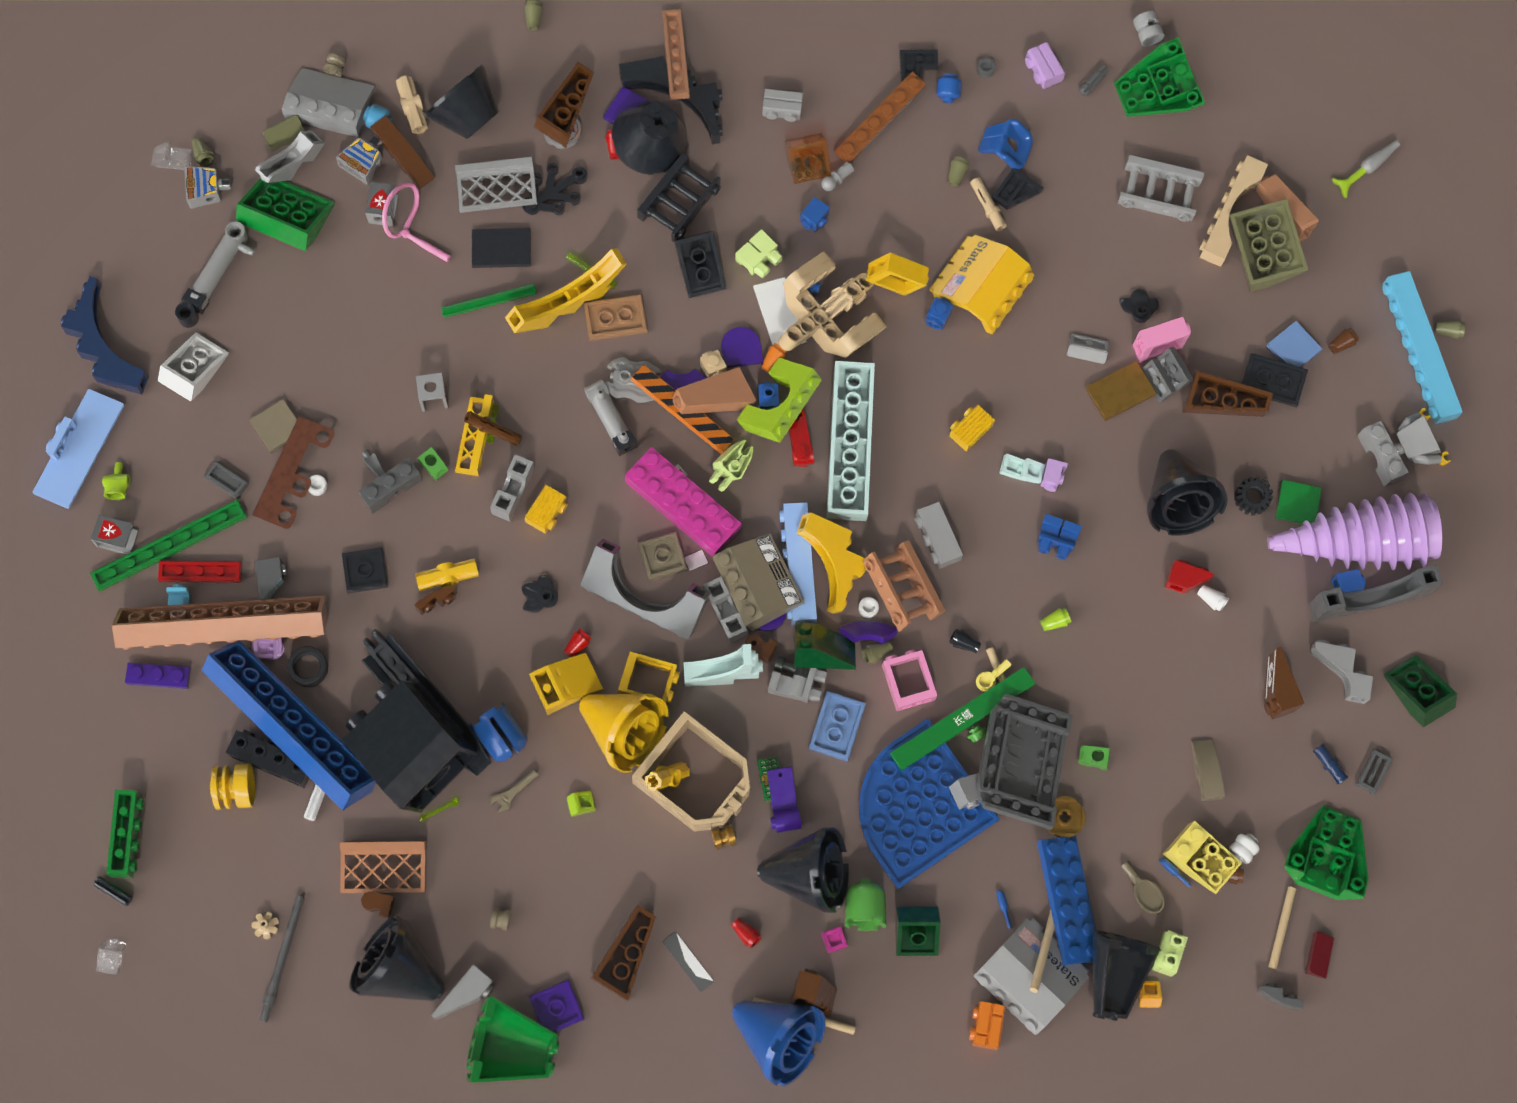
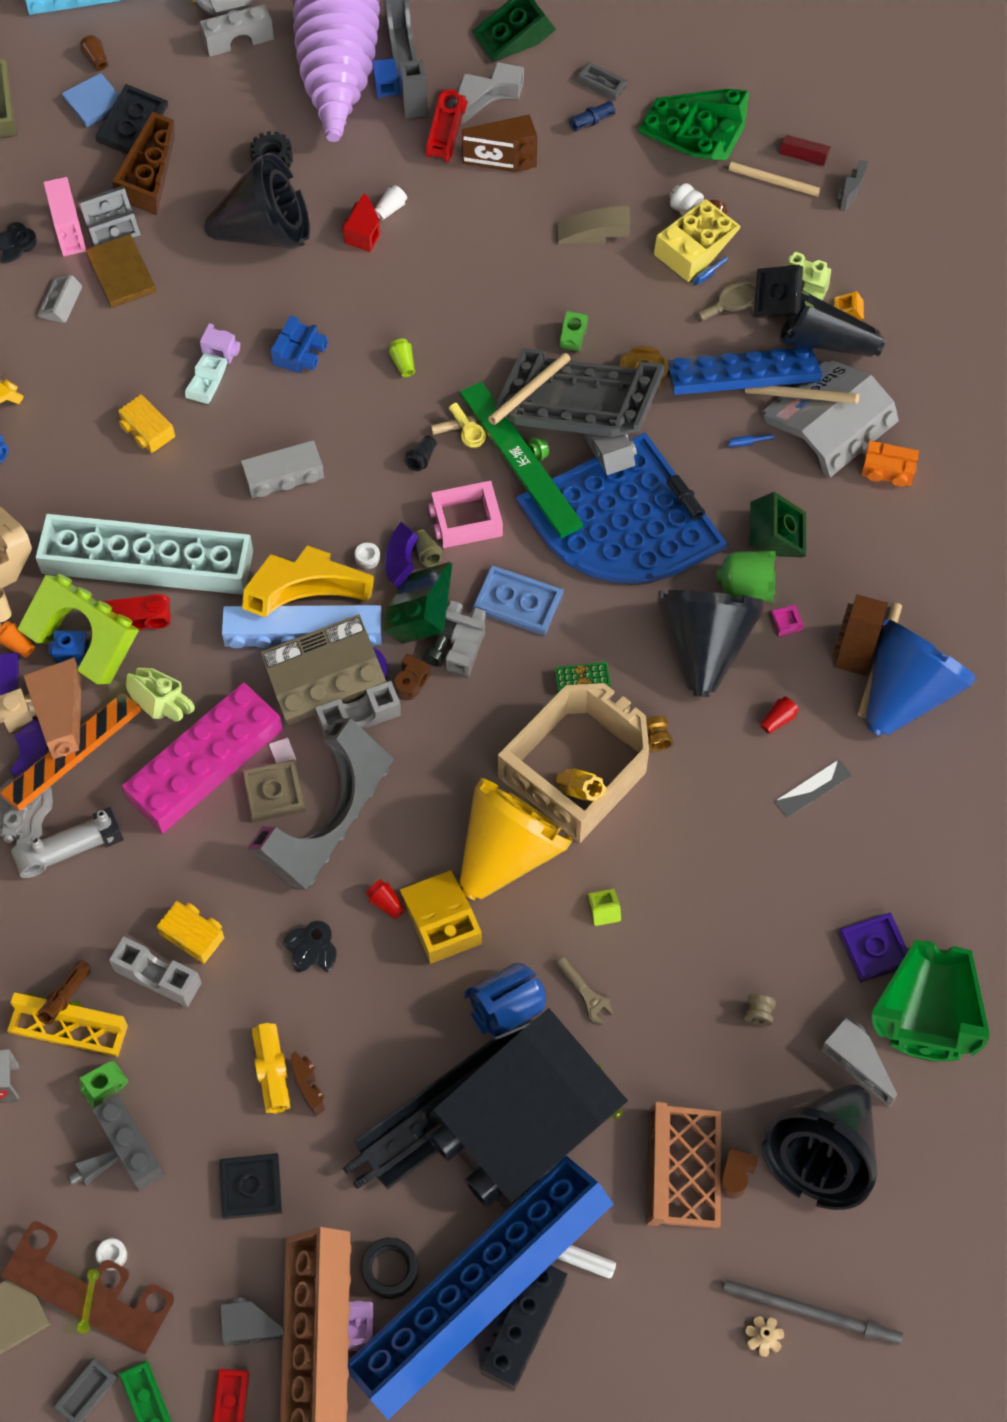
camera: 80 degrees left, 10 degrees down
(229, 786) = (566, 1373): yellow wheel -> none
(267, 473) = (84, 1327): none -> clear neon green hinge
(622, 960) = (806, 853): reddish brown wedge -> none
(635, 658) = (433, 835): yellow window -> none
(724, 669) = (439, 710): light aqua arch -> none
(783, 800) = (629, 662): dark purple door -> none
(918, 579) = (341, 494): nougat fence -> none
(935, 852) = (685, 497): none -> black axle
(1024, 720) = (529, 389): none -> tan piece
(1148, 927) = (778, 291): none -> black tile
(1296, 636) = (445, 125): none -> red piece
(1297, 502) = (284, 115): green tile -> none

